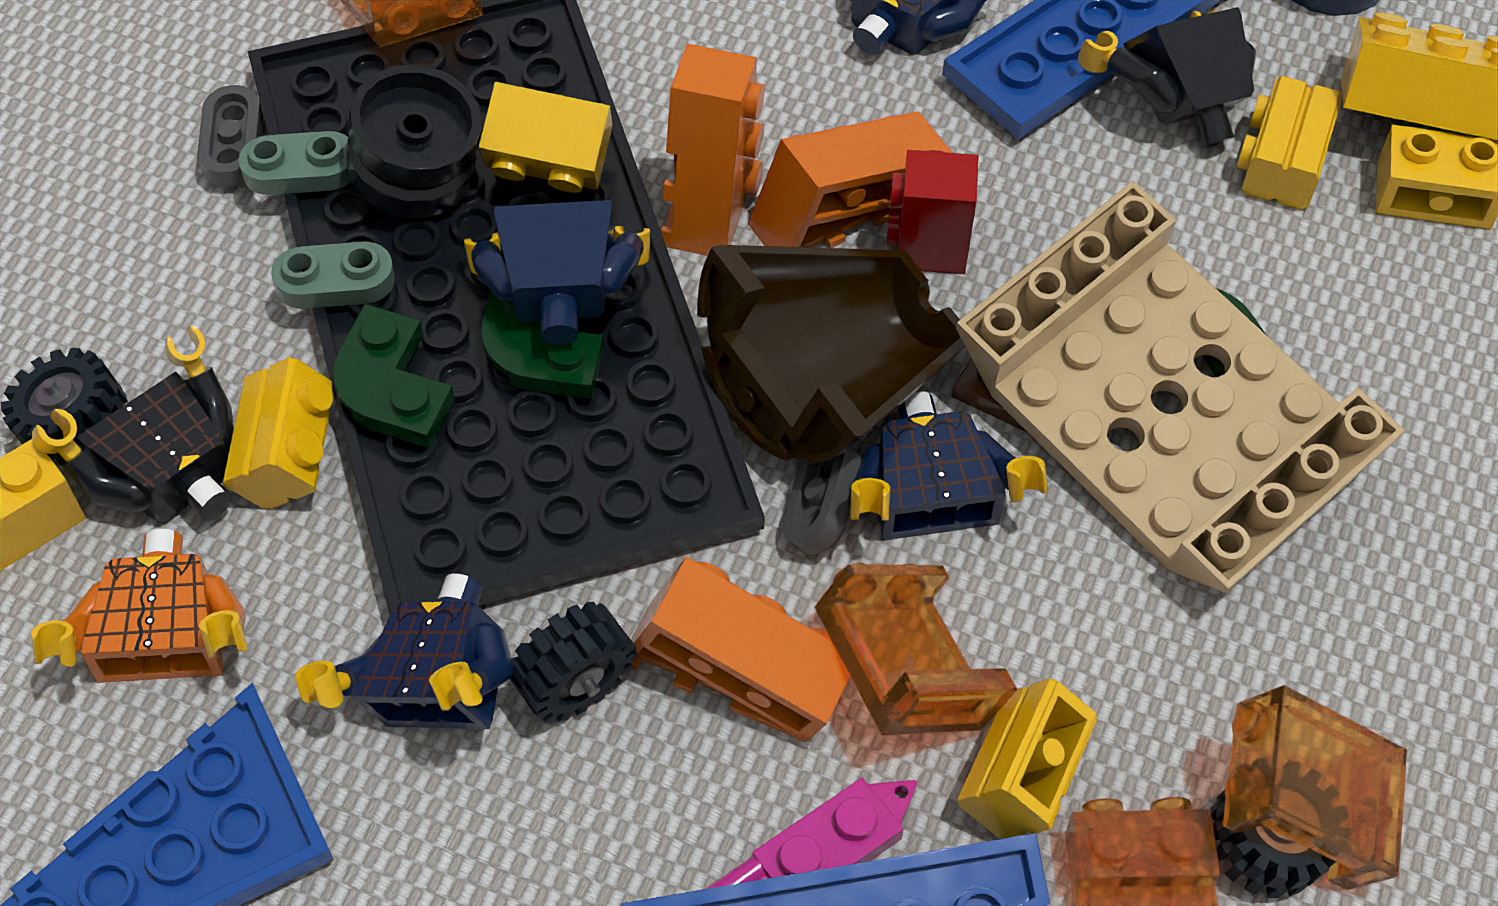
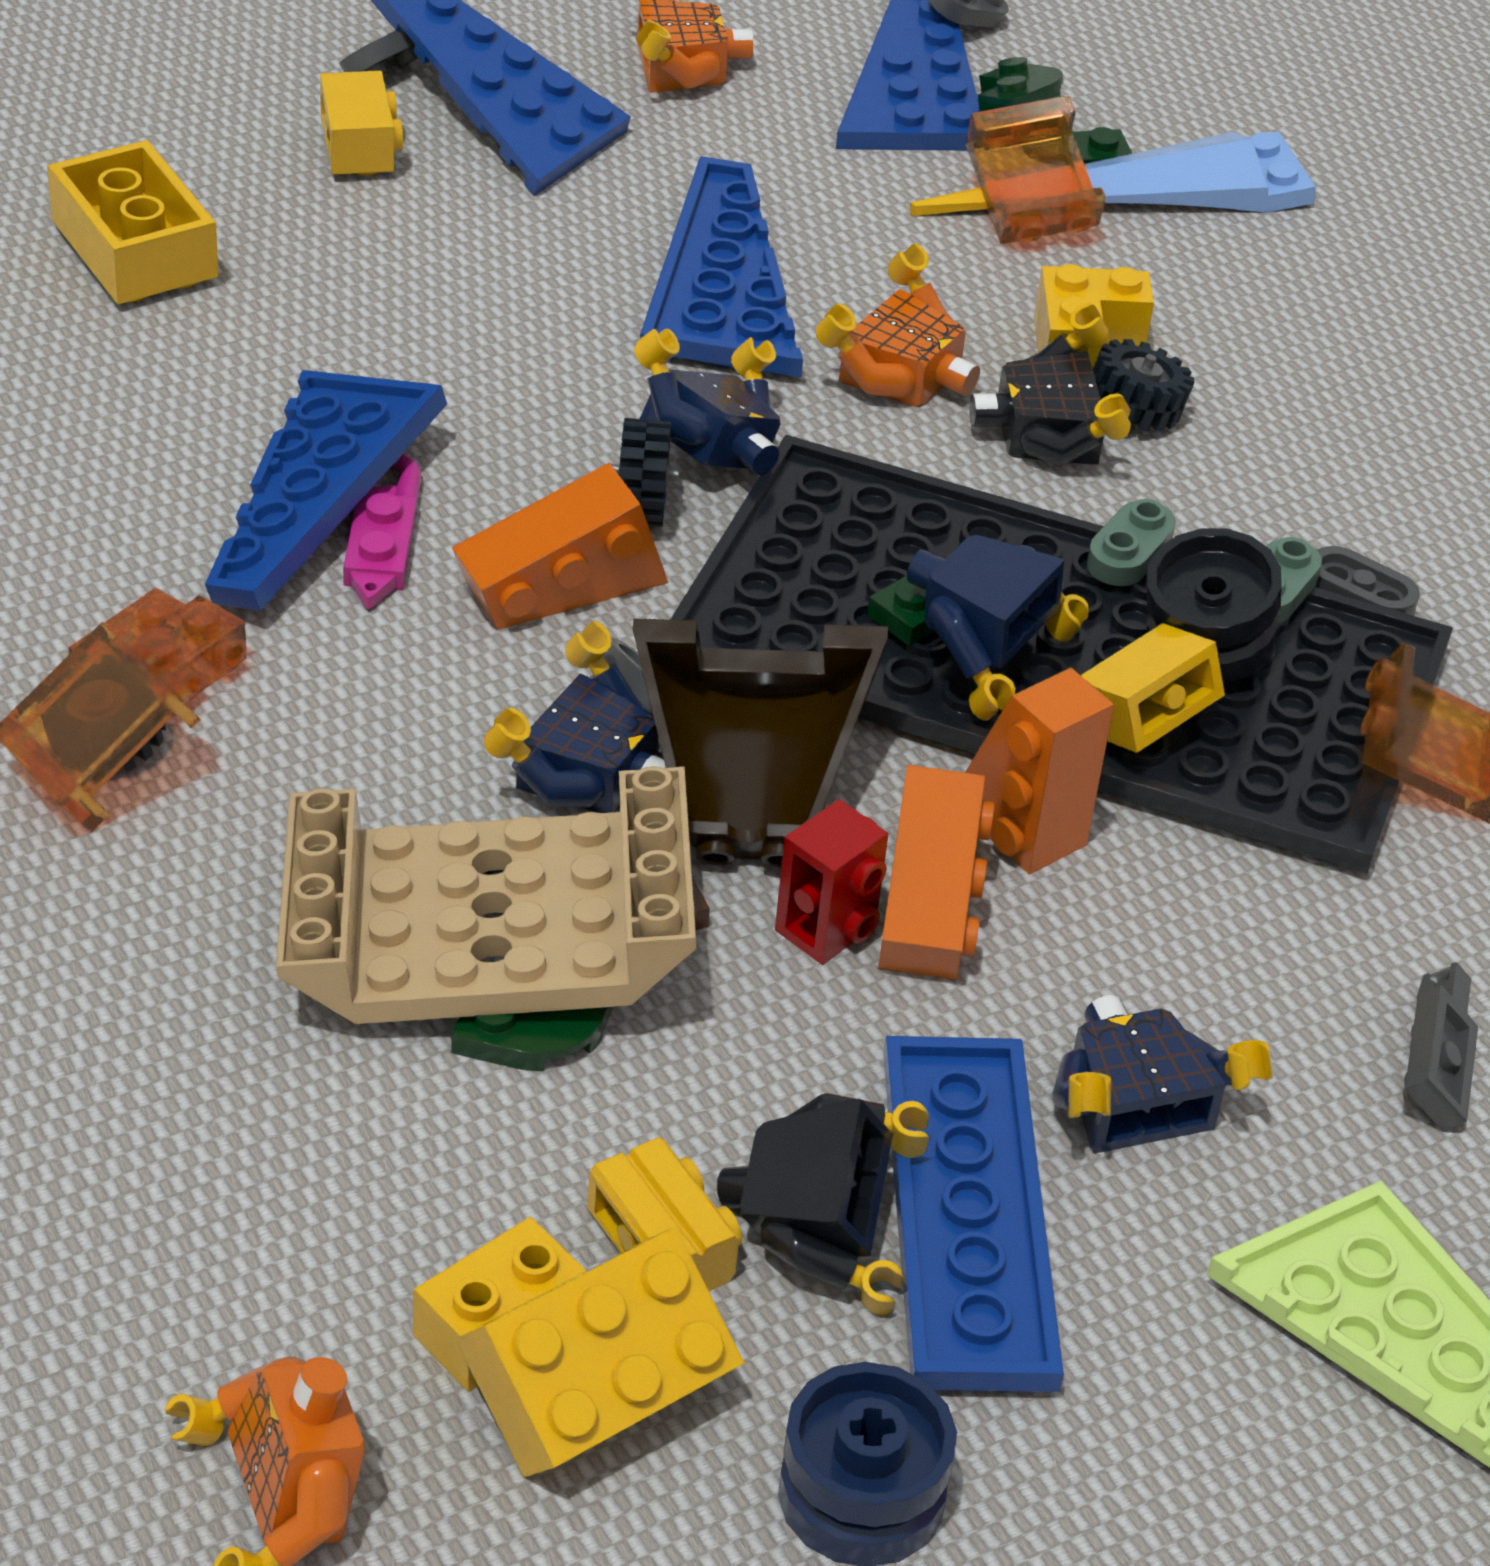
camera: 125 degrees right, 15 degrees down
(279, 433) = (1002, 454): yellow brick -> none
(374, 380) = (994, 508): dark green plate -> none
(904, 652) = (453, 616): clear orange panel -> none
(1028, 760) = (307, 627): yellow brick -> none

